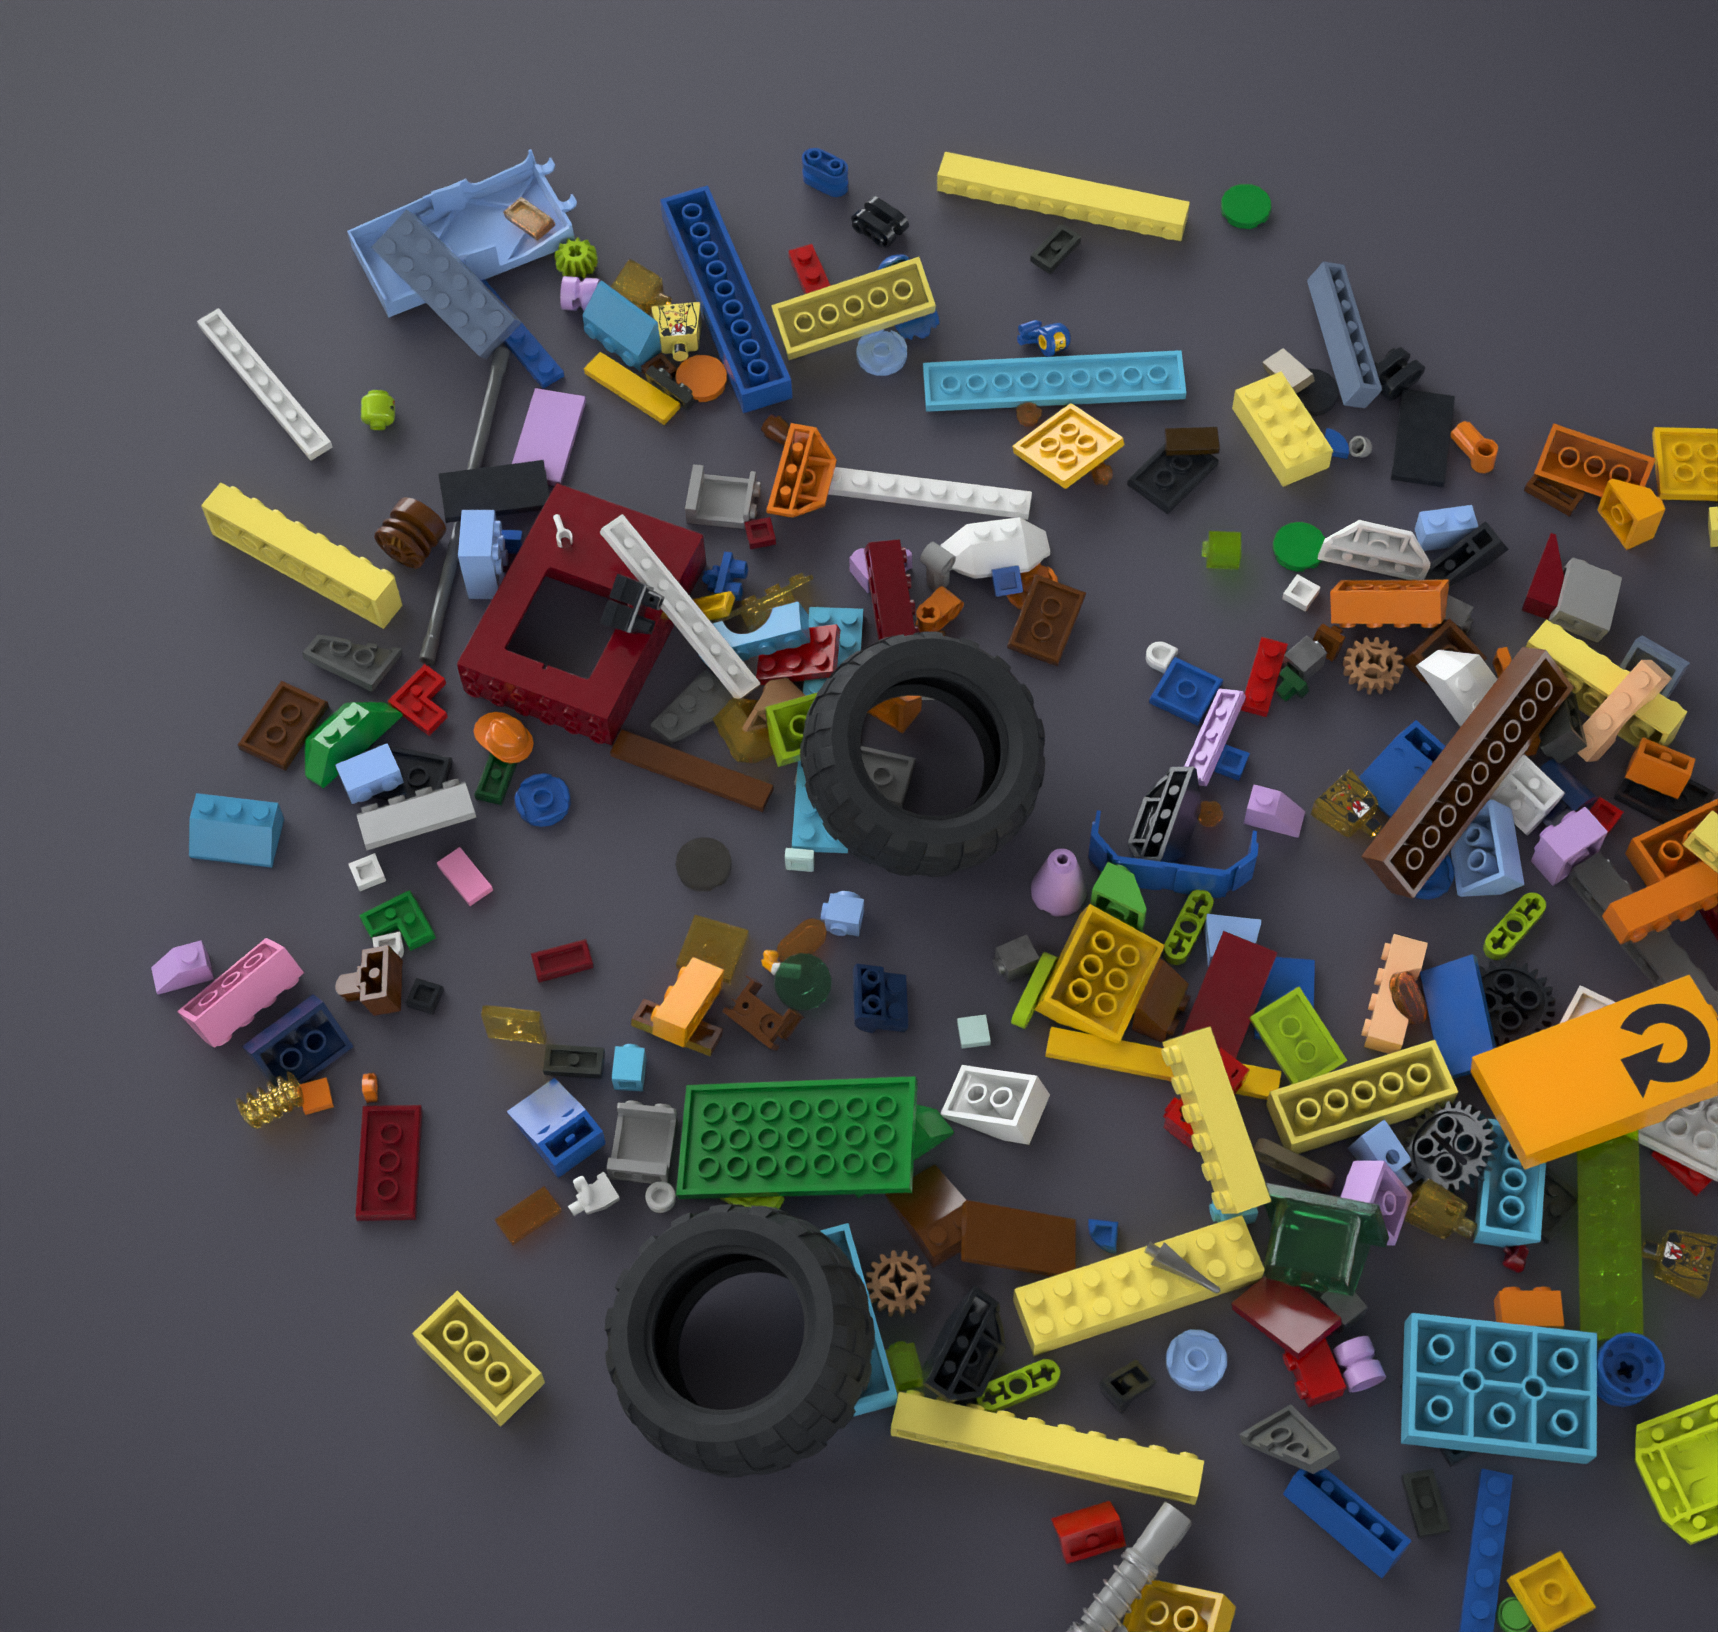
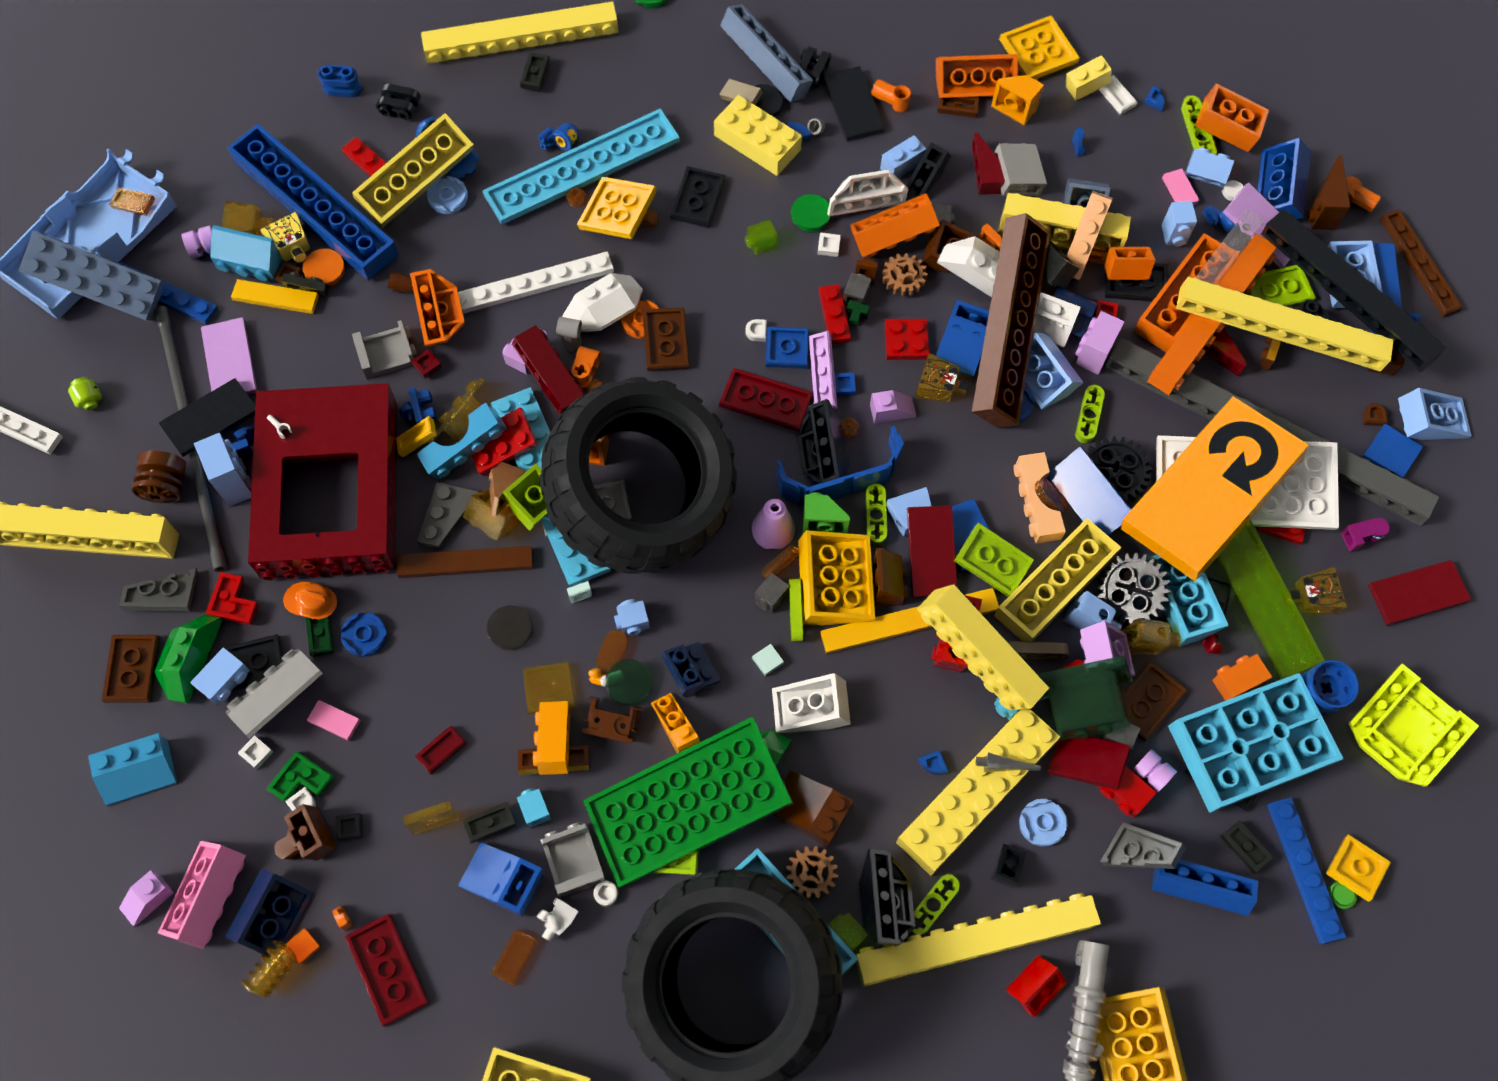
camera: 30 degrees left, 5 degrees up
(523, 525) = (245, 432): none -> blue tile
(576, 258) = (183, 217): lime gear -> none
(626, 617) = (363, 450): black hips -> none
(680, 608) = (398, 444): white plate -> none
(831, 1048) = (675, 723): none -> light orange slope
(1007, 580) = (624, 322): blue tile -> none
(1017, 1239) = (881, 799): reddish brown tile -> none
(1046, 928) = (780, 561): none -> clear orange tile
(1128, 739) = (765, 399): none -> dark red tile
(1191, 441) = (700, 169): dark brown tile -> none
(1335, 742) = (906, 339): none -> red plate
(1402, 1285) = (1151, 699): none -> reddish brown tile
(1627, 739) = (1099, 254): none -> clear orange tile
(1683, 598) = (1077, 142): none -> blue tile

